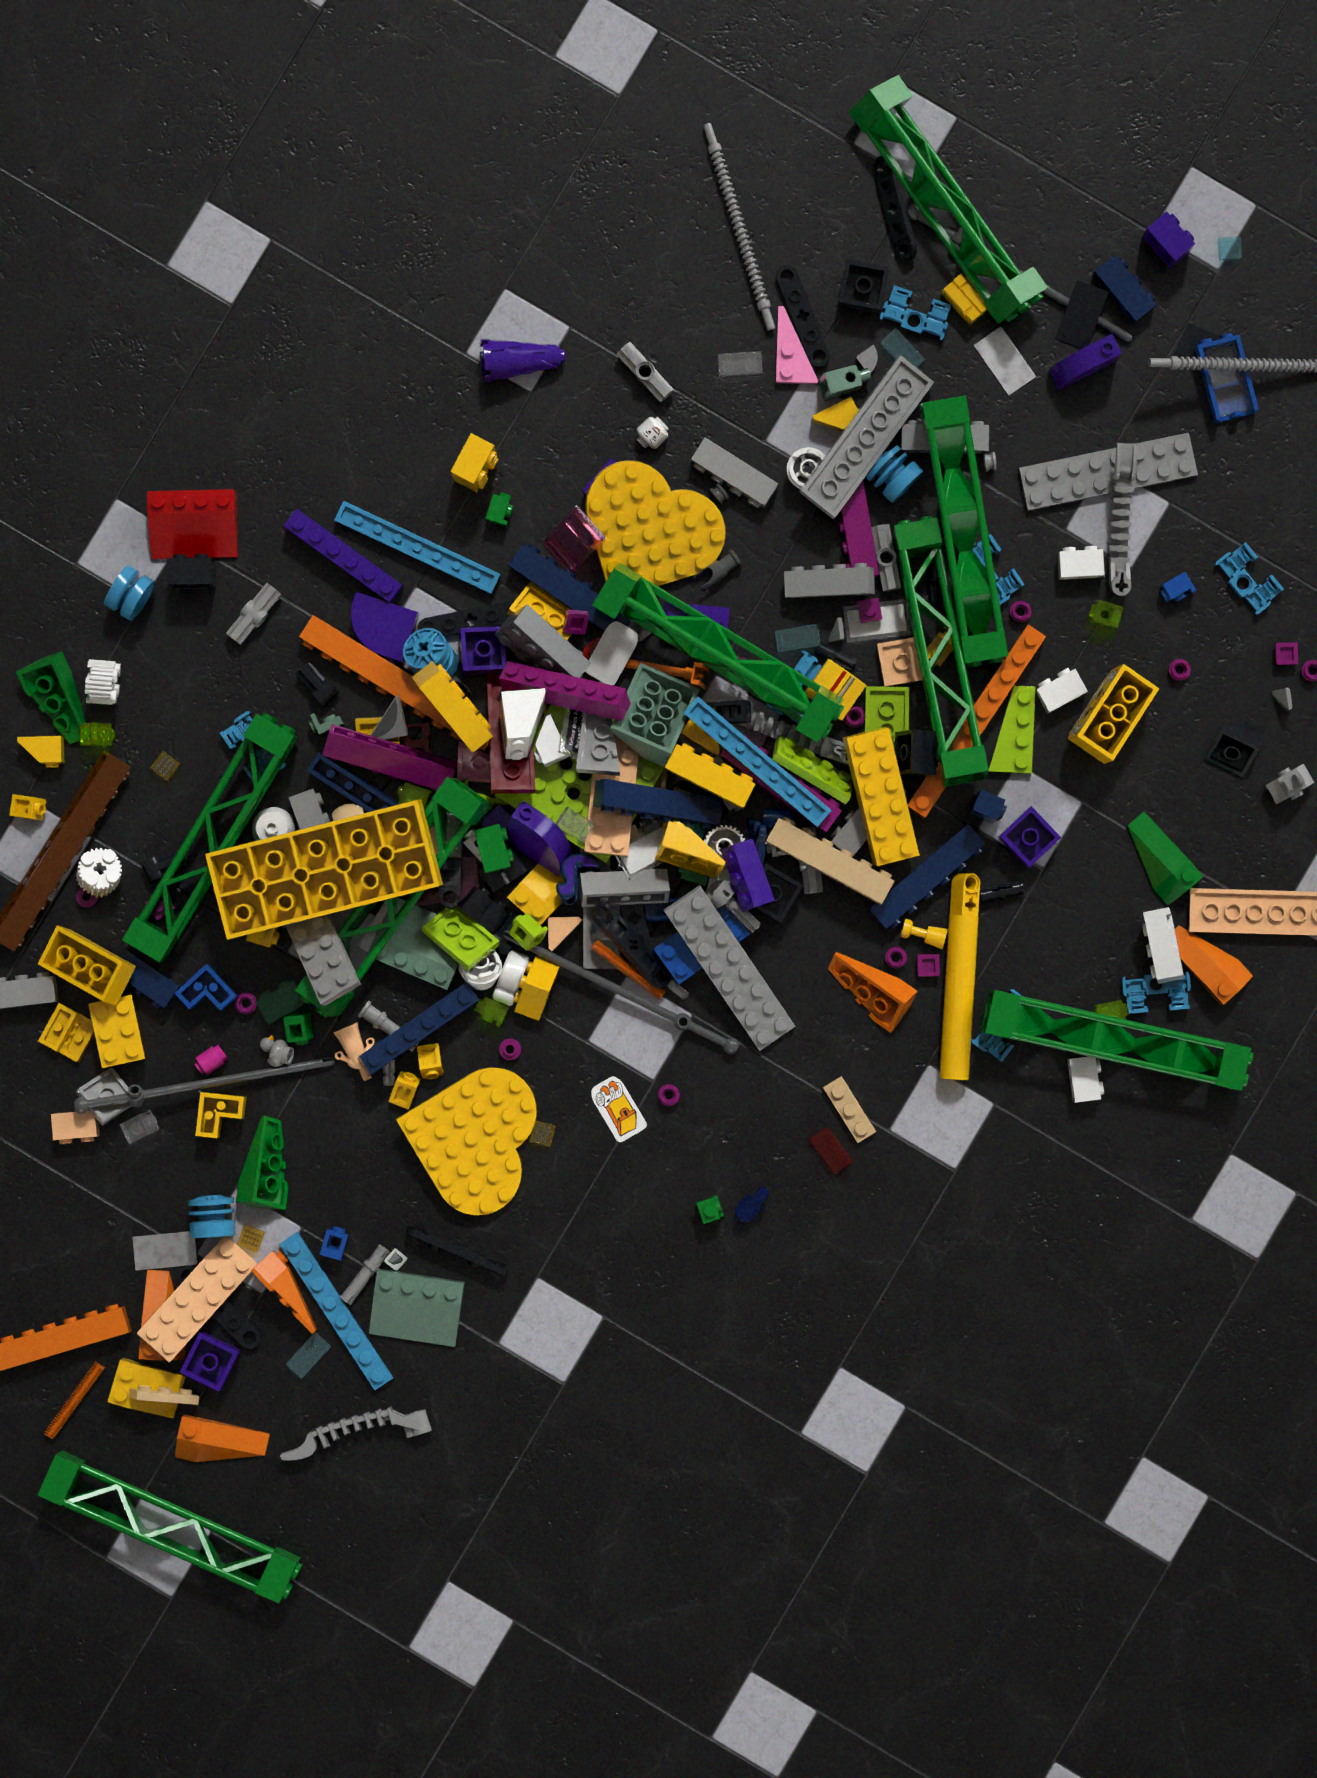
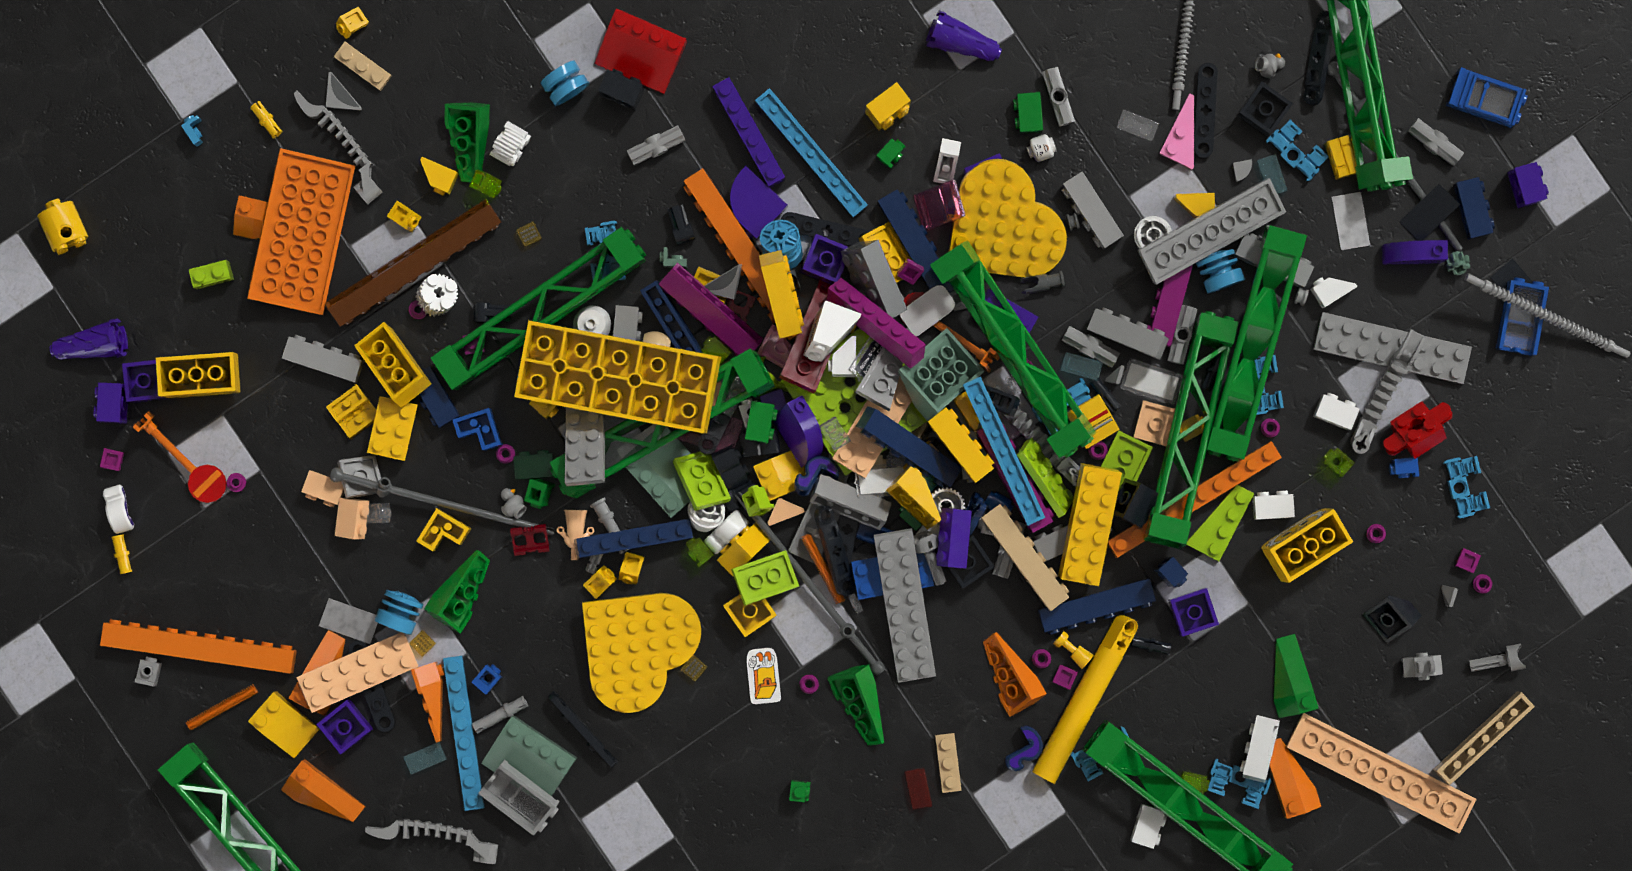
camera: 20 degrees right, 0 degrees up
(118, 1143) = (352, 518): none -> light nougat brick
(164, 1394) = (295, 736): tan plate -> none
(210, 1060) = (456, 486): dark pink brick -> none
(315, 1085) = (531, 546): none -> dark red piece
(395, 1259) = (530, 714): white sticker -> none
(425, 1351) = (519, 798): none -> door
(517, 1049) = (705, 588): magenta plate -> none
(561, 490) = (947, 161): none -> white slope
(572, 1006) = (765, 578): none -> lime plate
(572, 1047) = (751, 616): none -> yellow brick
(622, 402) = (1029, 113): none -> green brick
(726, 1083) = (859, 695): none -> green wedge
(750, 1205) = (833, 803): clear blue arm -> none
(797, 613) = (1090, 346): none -> light grey piece
(834, 383) = (1206, 177): sand green torso -> none
(846, 239) = (1269, 64): none -> light grey animal
(869, 610) = (1149, 370): magenta plate -> none
(926, 1061) = (1028, 752): none -> animal
(1017, 441) = (1330, 290): none -> white slope
(1054, 239) = (1435, 142): none -> light grey piece
(1086, 169) = (1487, 98): none -> blue door
(1134, 353) = (1458, 263): none -> sand green gear
(1180, 549) = (1423, 436): none -> red brick
(1230, 248) = (1573, 214): clear light blue tile -> none

